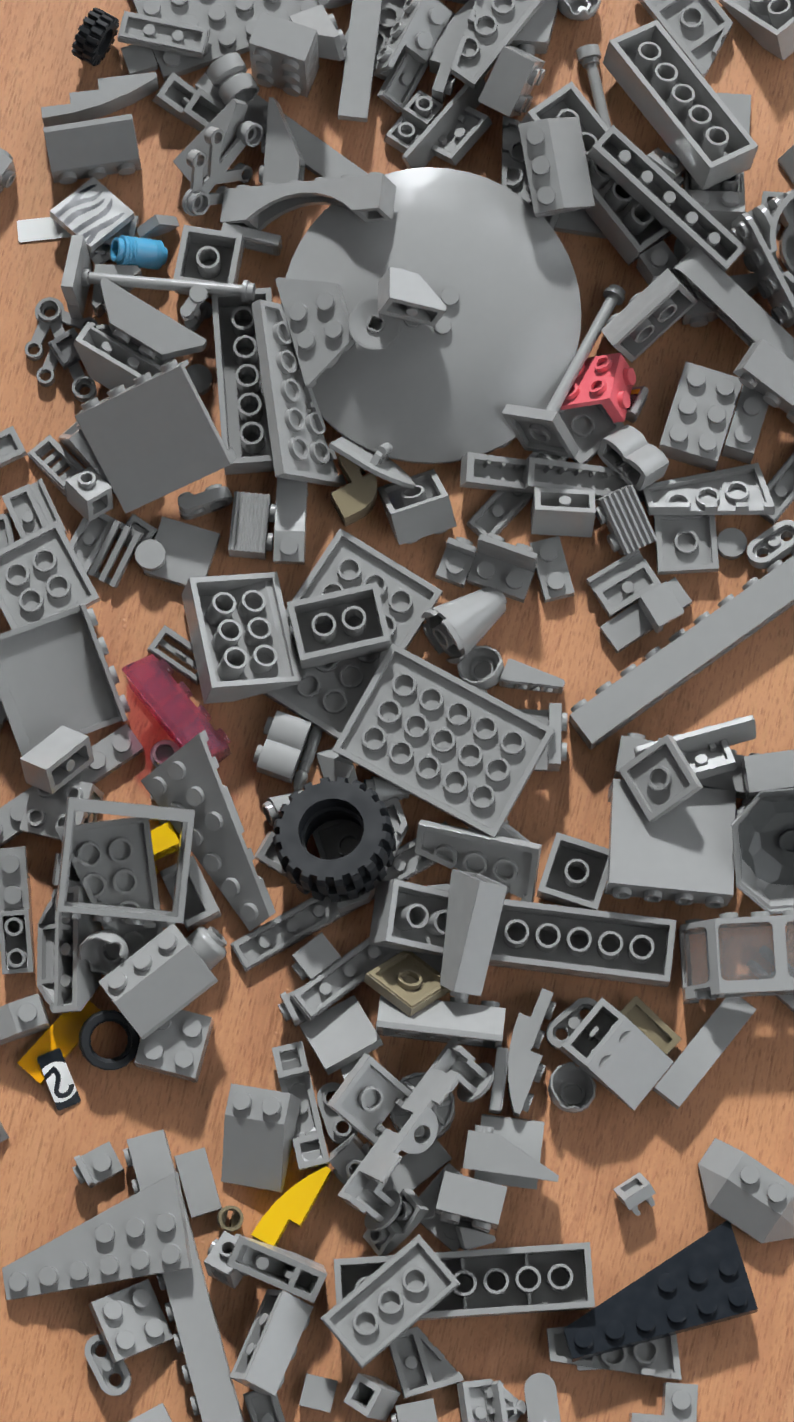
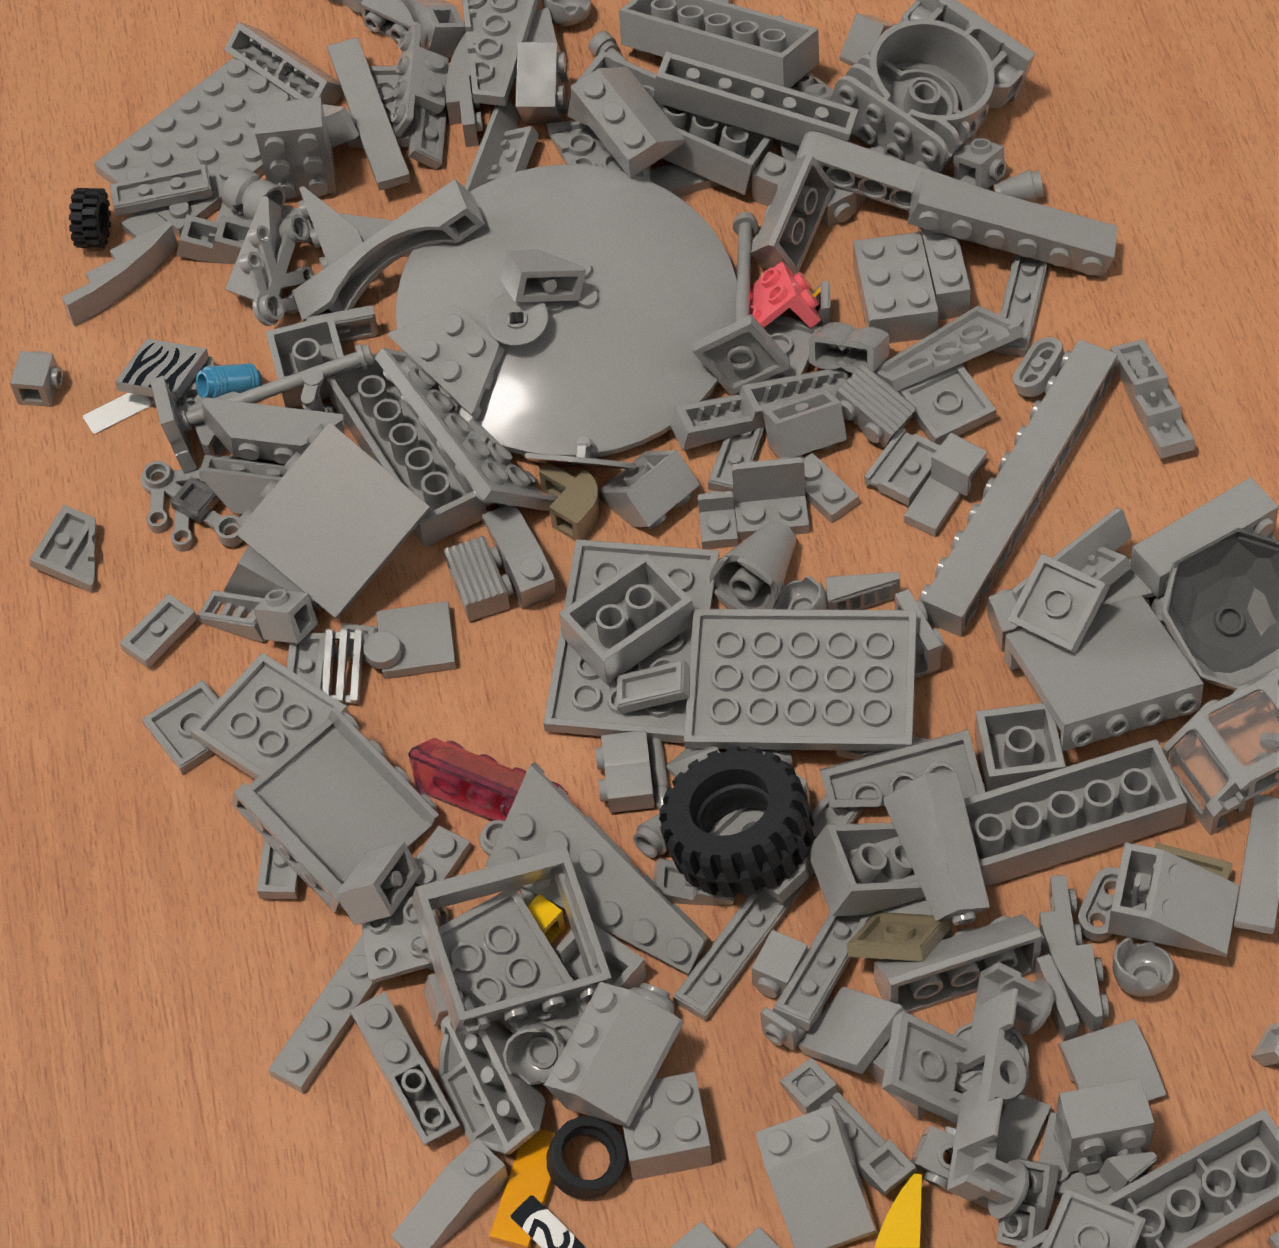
camera: 20 degrees left, 20 degrees down
(31, 508) = (222, 662): light grey plate -> none
(92, 149) = (133, 308): light grey slope -> none
(152, 649) = (471, 742): light grey tile -> none
(157, 226) = (238, 353): light grey tile -> none
(212, 499) = (415, 578): light grey plate -> none
(239, 635) = (520, 681): light grey slope -> none
(330, 1117) = (892, 1118): light grey plate -> none
(332, 691) = (653, 686): none -> light grey tile
(414, 120) = (457, 161): light grey slope -> none
(498, 1155) = (1106, 1062): light grey slope -> none
(731, 543) = (995, 386): light grey tile -> none

